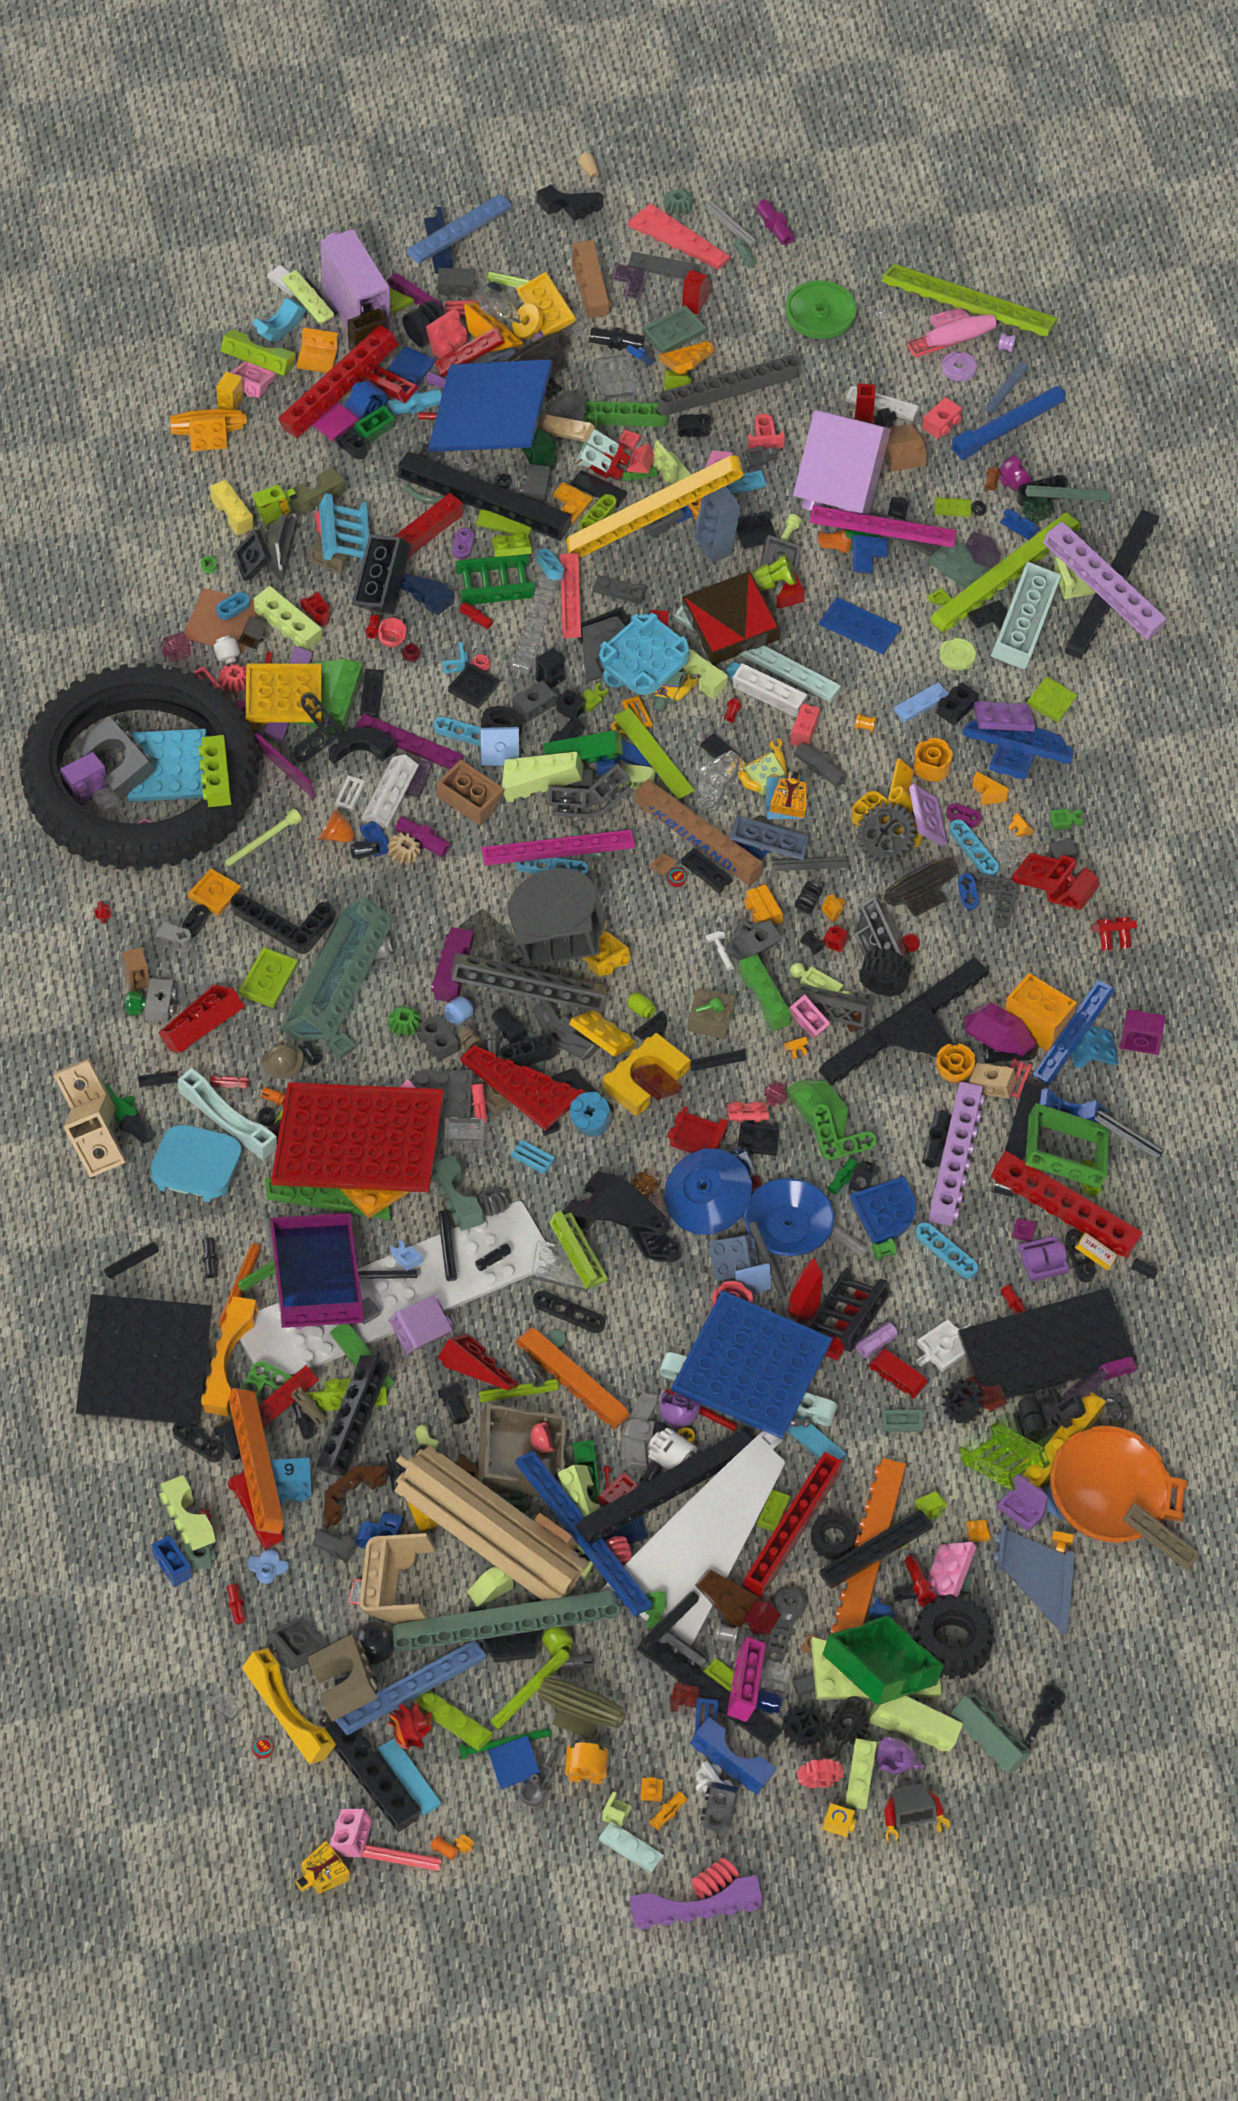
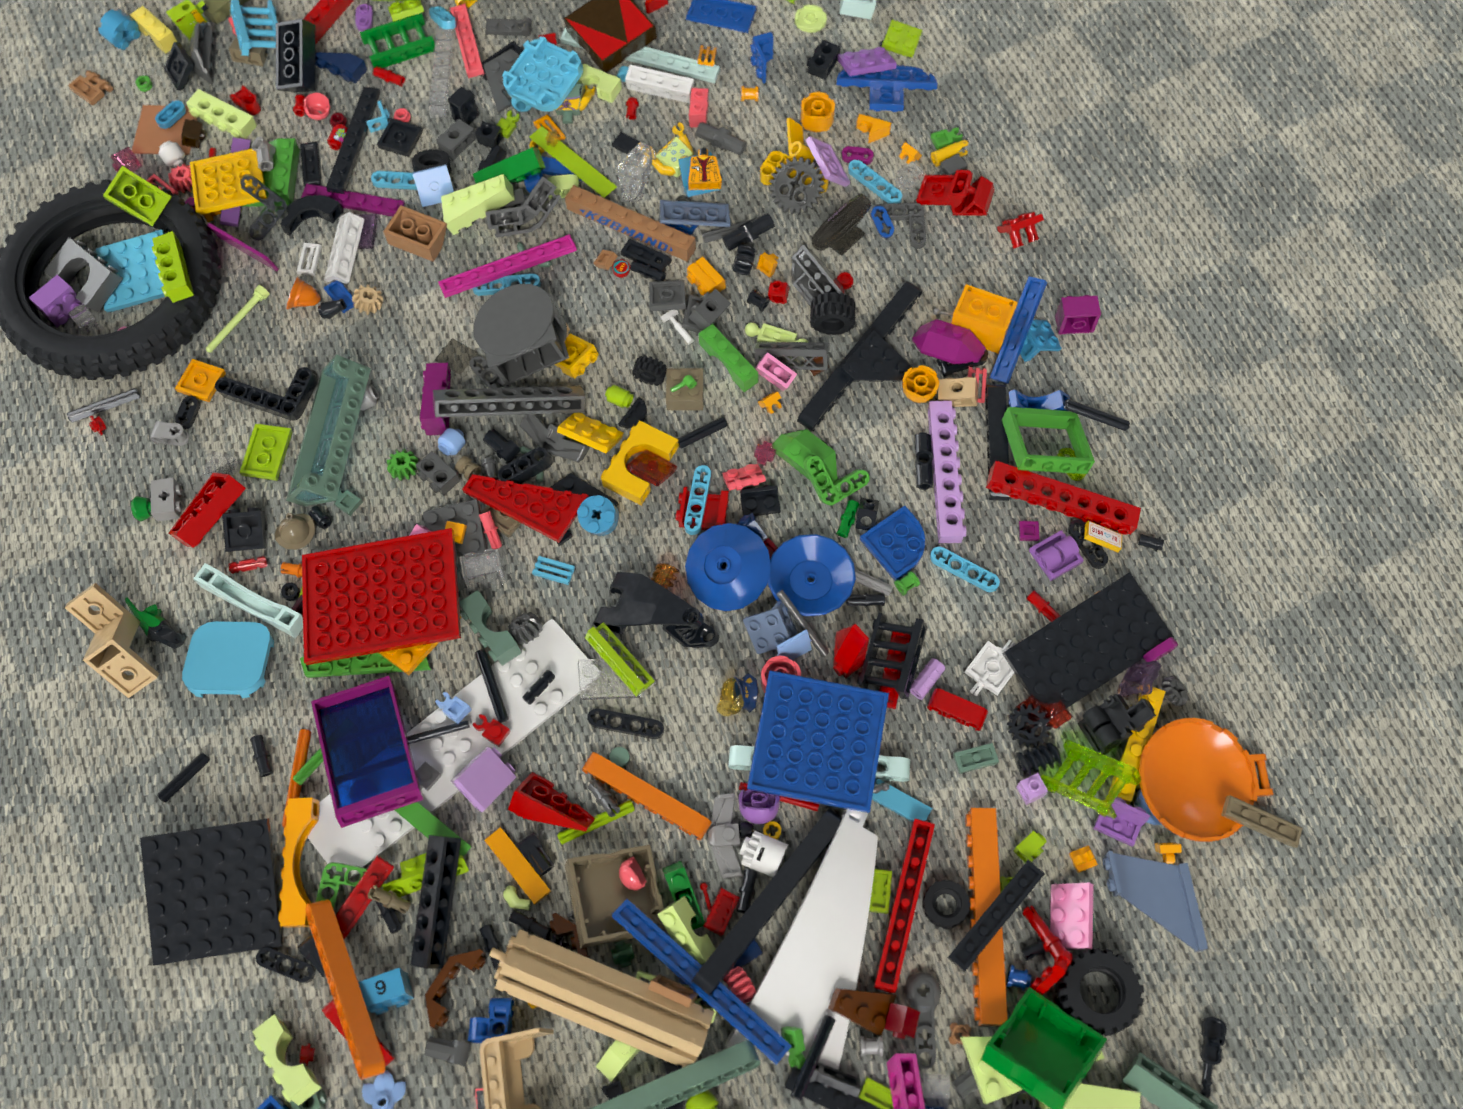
camera: 10 degrees left, 10 degrees up
(111, 894) = (103, 405): none -> axle
(135, 969) = (135, 474): medium nougat brick -> none
(147, 559) = (86, 90): none -> medium nougat plate
(158, 1079) = (177, 579): black pin -> none
(191, 690) = (136, 196): none -> lime slope
(194, 499) = (119, 28): none -> dark azure brick
(233, 1047) = (244, 530): none -> black plate
(328, 673) = (264, 153): none -> light grey piece
(407, 671) = (337, 136): none -> red brick
(423, 677) = (353, 140): none -> black plate
(424, 835) = (383, 283): magenta piece -> none
(434, 1410) = (517, 866): none -> light orange tile
(438, 1286) = (493, 731): none -> red plate
(449, 1095) = (459, 531): none -> light orange tile
(638, 724) = (552, 138): none -> clear yellow plate
(679, 986) = (649, 370): none -> black tyre
(685, 1308) = (738, 695): none -> piece
(696, 1123) = (697, 500): none -> medium azure beam
(704, 886) = (647, 271): none -> black pin
(718, 915) = (667, 295): none -> dark grey plate
(821, 869) = (748, 232): none -> black piece
(832, 665) = (707, 51): none -> light orange tile
(837, 1255) = (866, 600): none -> black axle
(890, 679) = (761, 53): none -> blue bracket
(912, 1606) = (1051, 974): none -> red plate
(920, 702) = (791, 66): light blue plate -> none
(947, 1457) = (1032, 788): none -> lavender brick
(962, 1433) = (1038, 758): none -> black piece
(1059, 834) = (944, 153): none -> yellow piece

